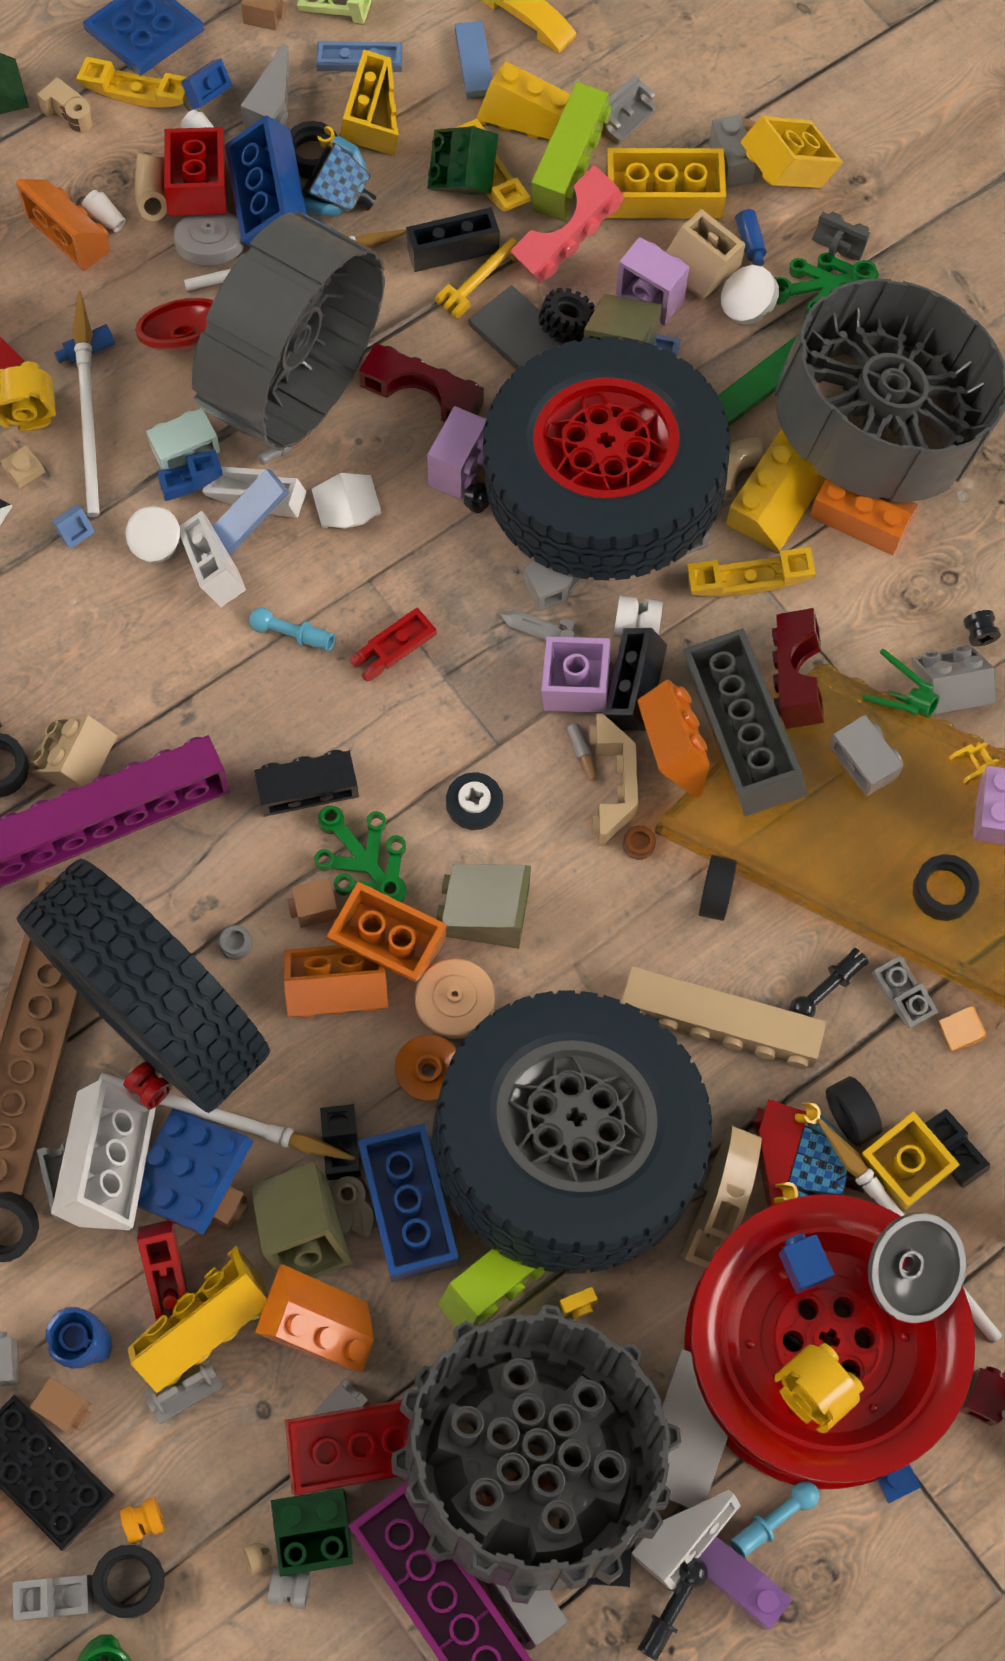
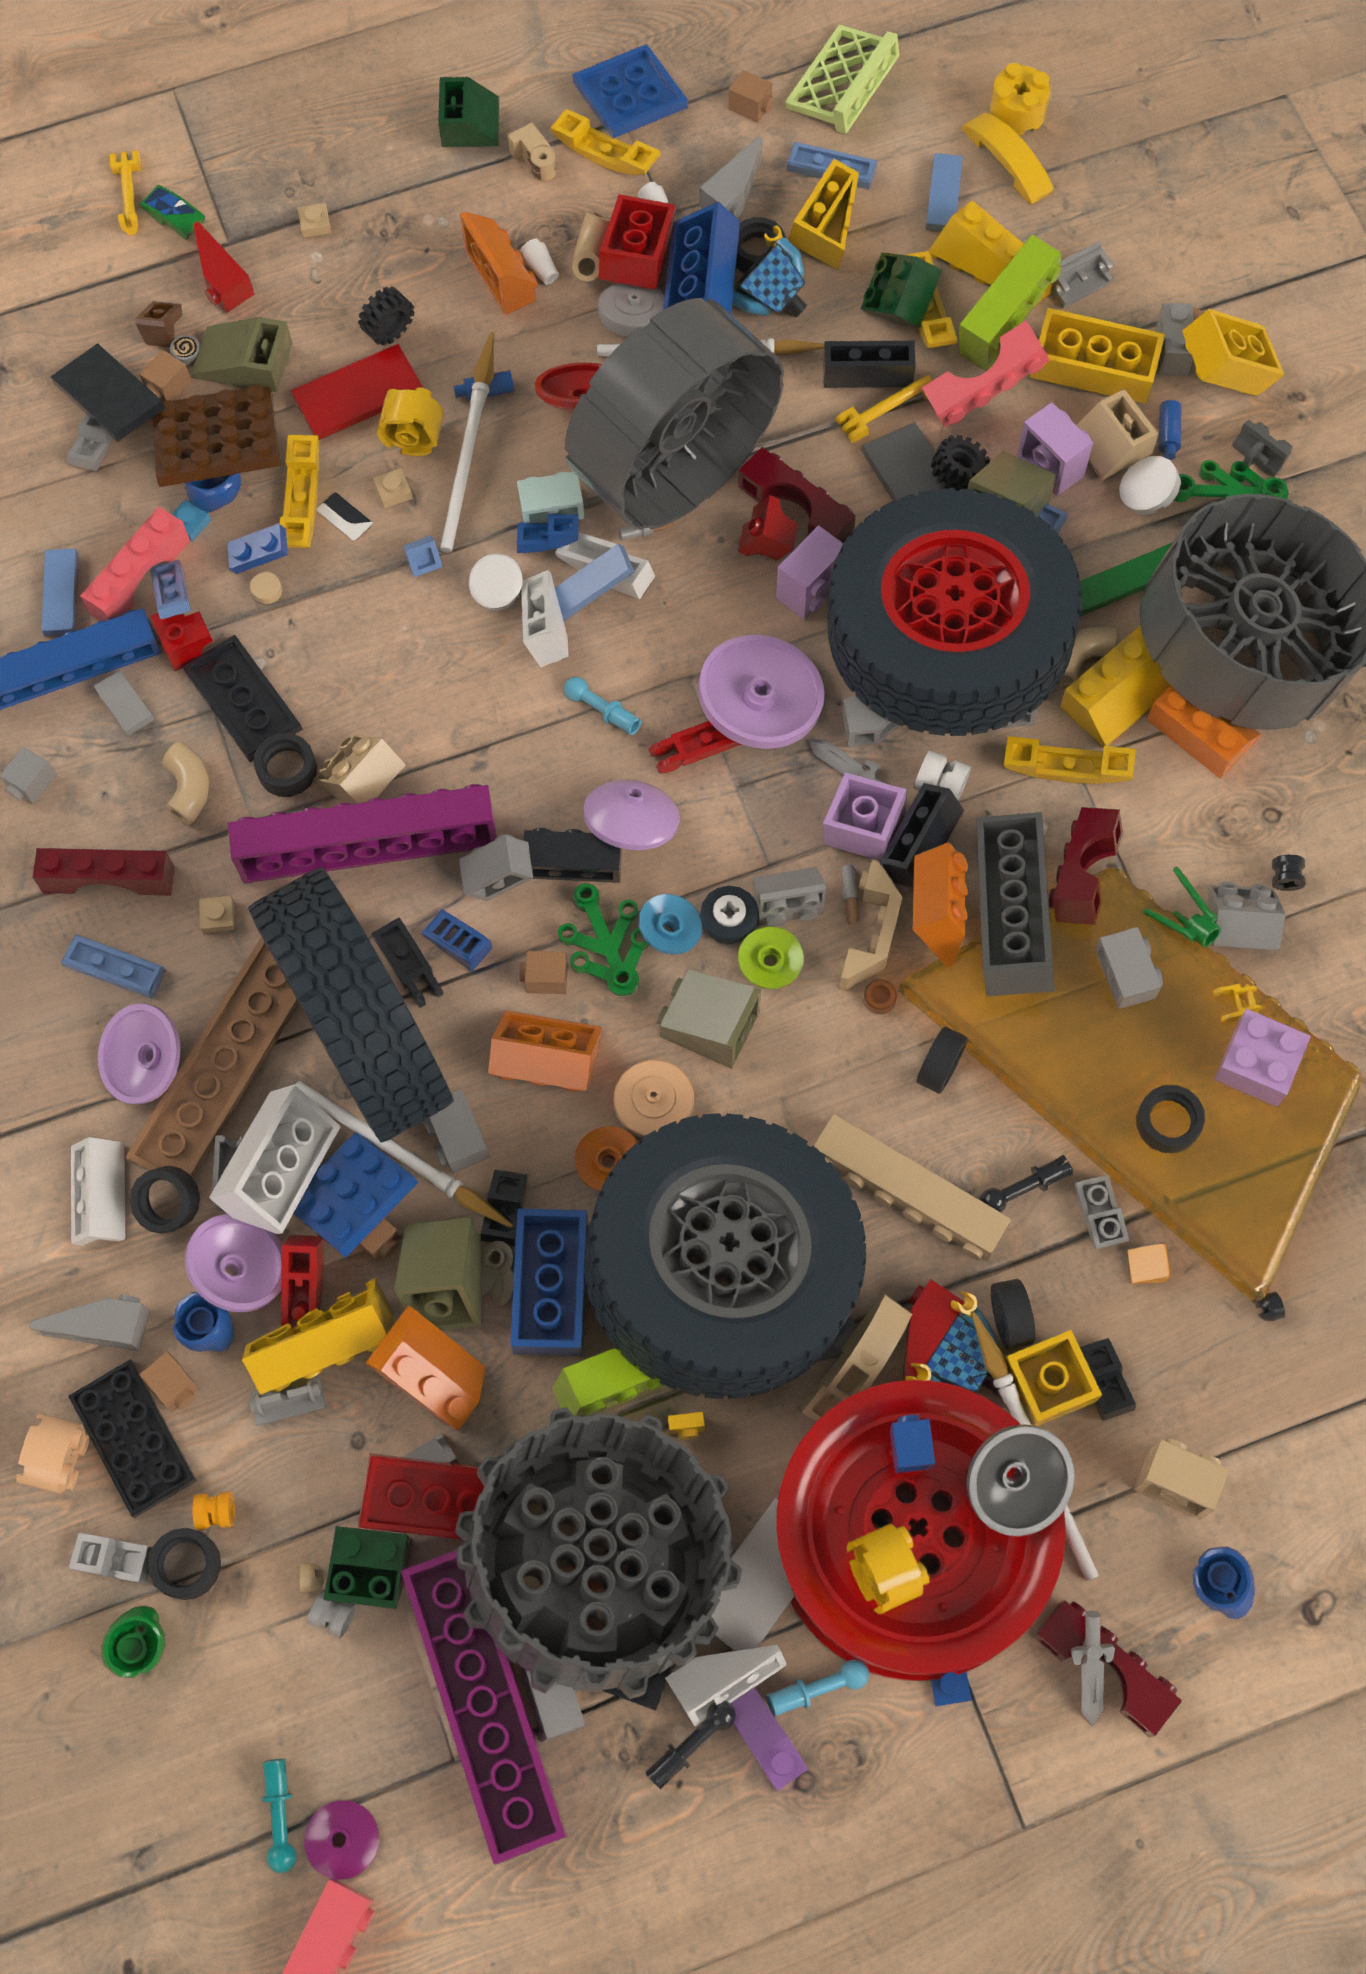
camera: 20 degrees right, 0 degrees up
(101, 1255) = (244, 1249): none -> lavender dish
(147, 1085) = (336, 1103): red wheel -> none
(177, 922) = (406, 959): none -> black hinge
(206, 83) = (673, 159): blue plate -> none
(233, 911) = (475, 955): none -> blue slope
(235, 942) = (460, 990): light grey tile -> none
(237, 813) = (496, 867): none -> light grey brick
(277, 1086) = (458, 1135): none -> light grey brick
(346, 500) = (691, 594): white slope -> none
(352, 728) = (631, 815): none -> lavender dish
(388, 932) = (606, 1019): orange slope -> none
(403, 422) = (768, 531): none -> red brick
(423, 814) = (678, 916): none -> dark azure dish
(442, 578) = (760, 691): none -> lavender dish
(476, 497) = (817, 621): black plate -> none
(527, 768) = (789, 896): none -> light grey slope
(528, 818) = (775, 944): none -> lime dish

